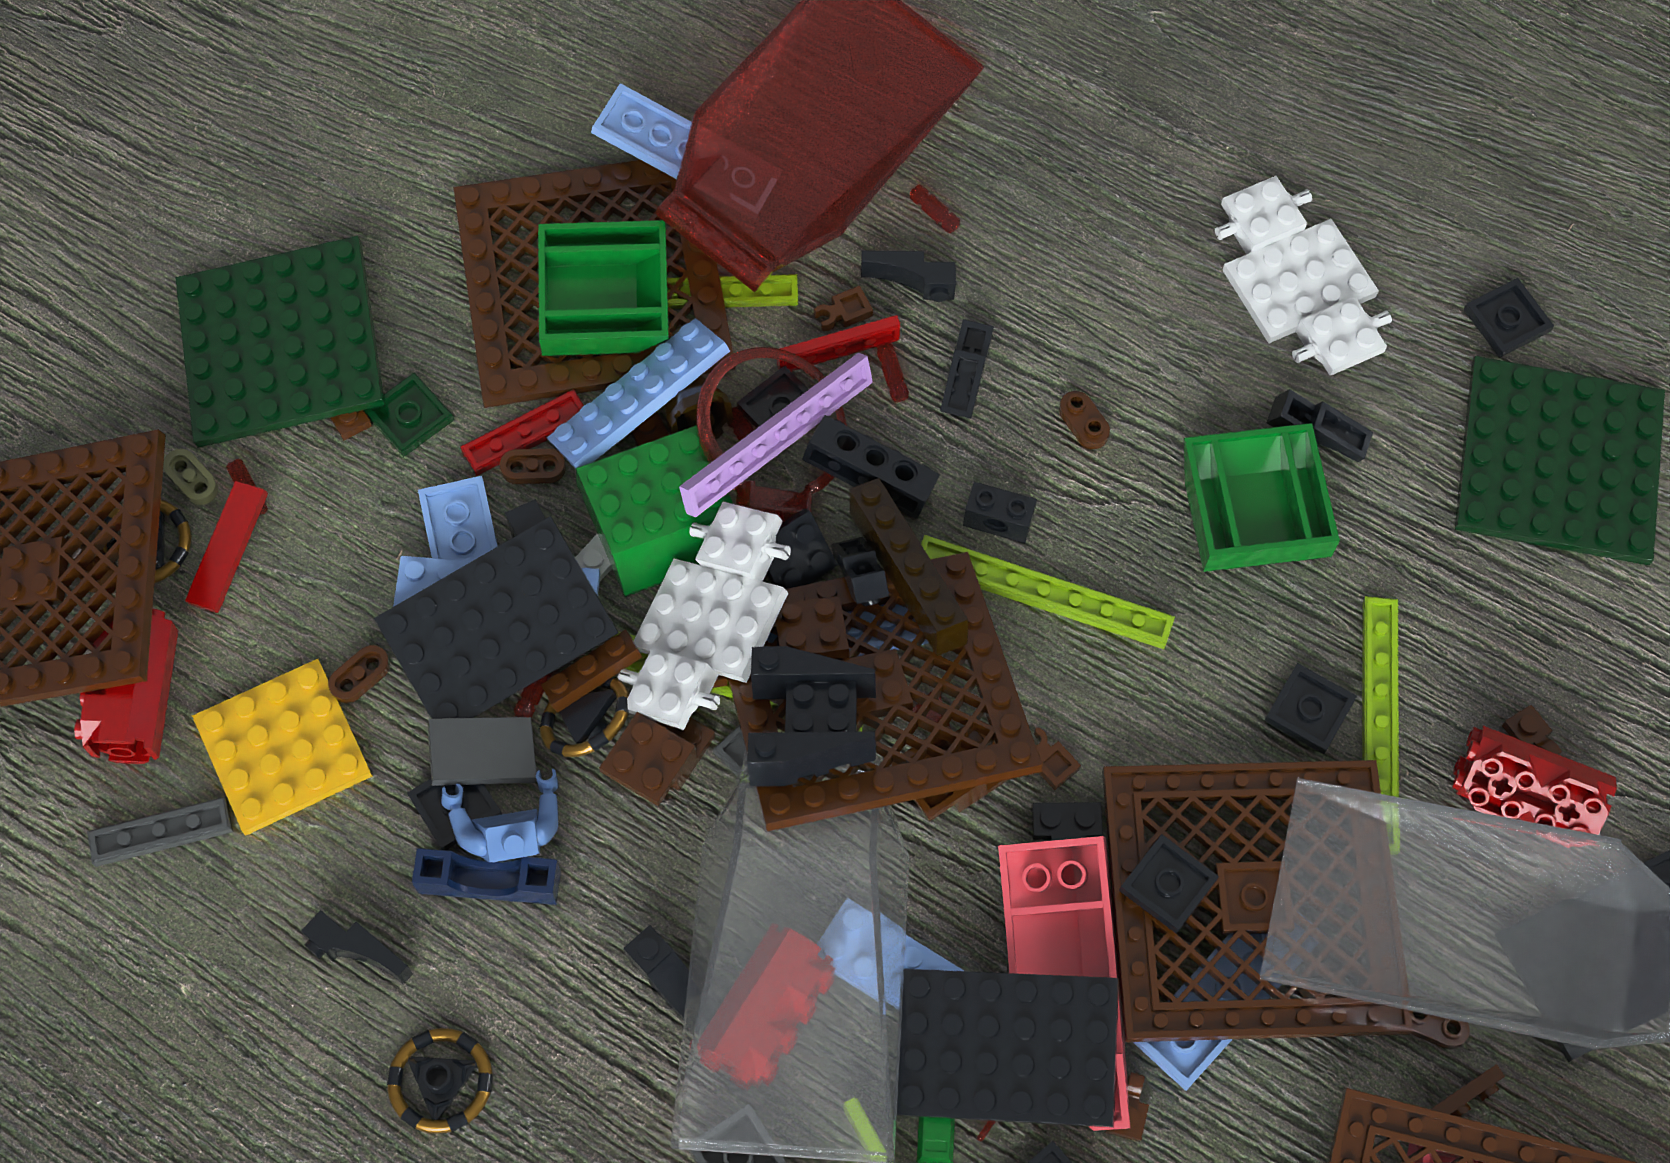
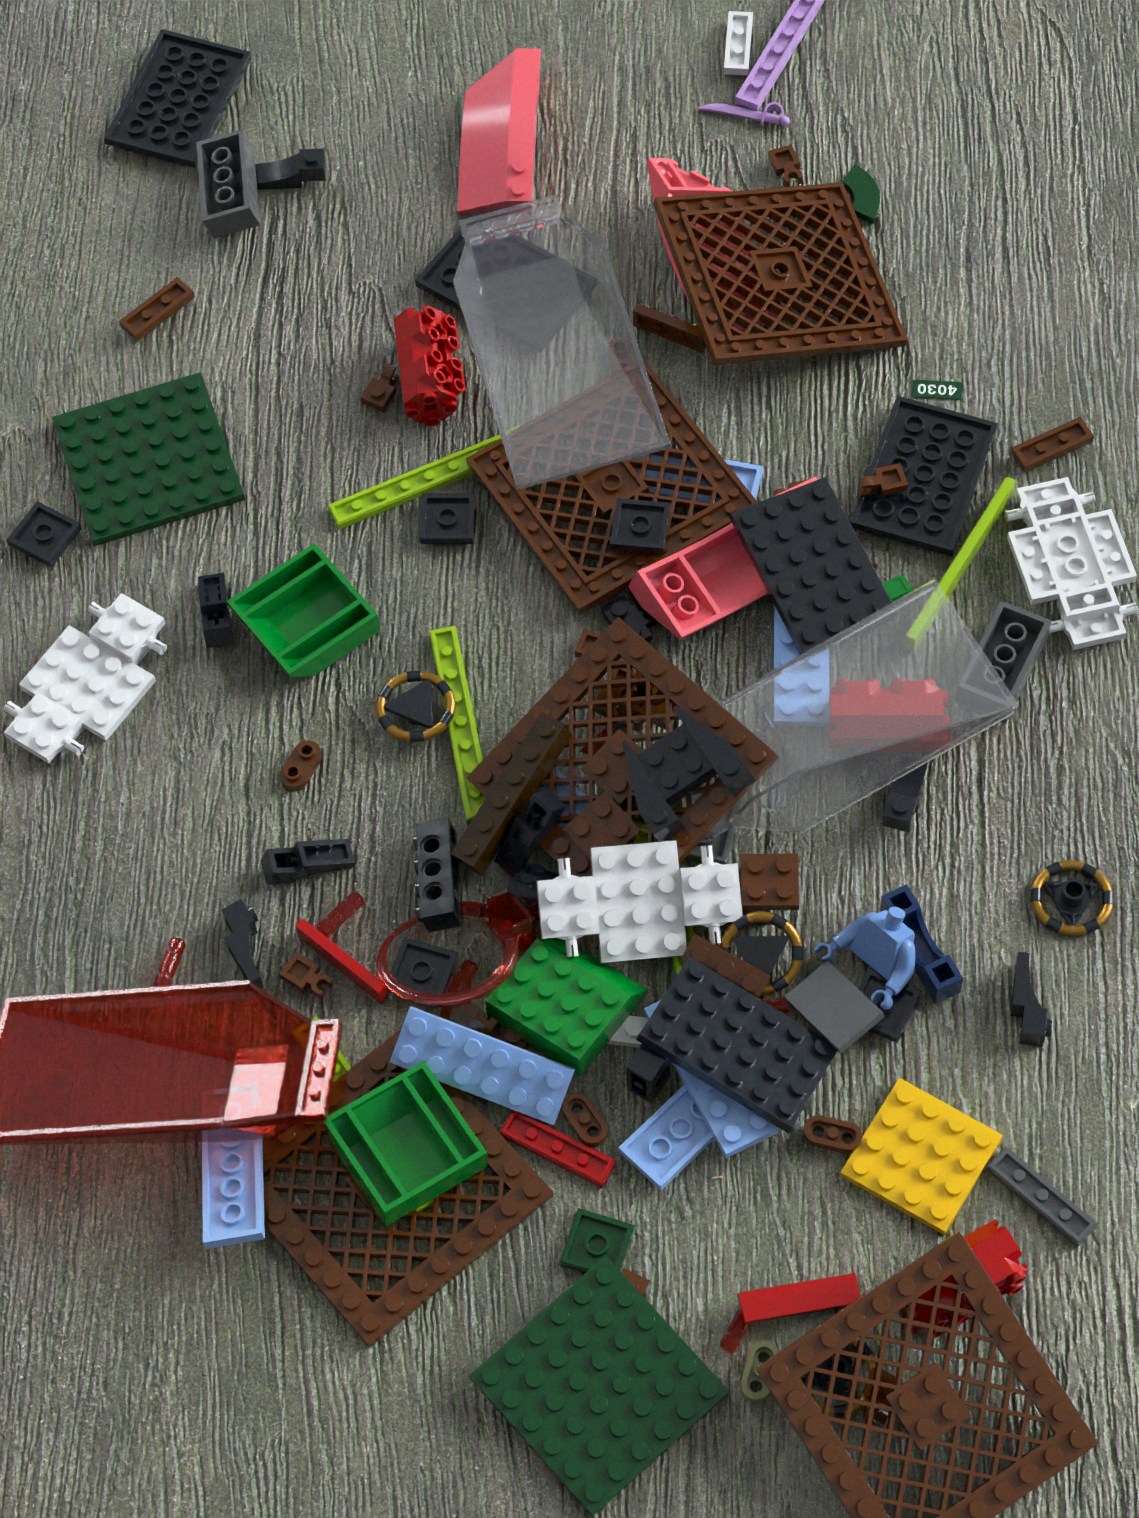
camera: 115 degrees left, 5 degrees down
(775, 435) = (471, 936): lavender plate -> none
(999, 512) = (419, 775): black brick -> none
(1083, 549) = (415, 706): none -> piece

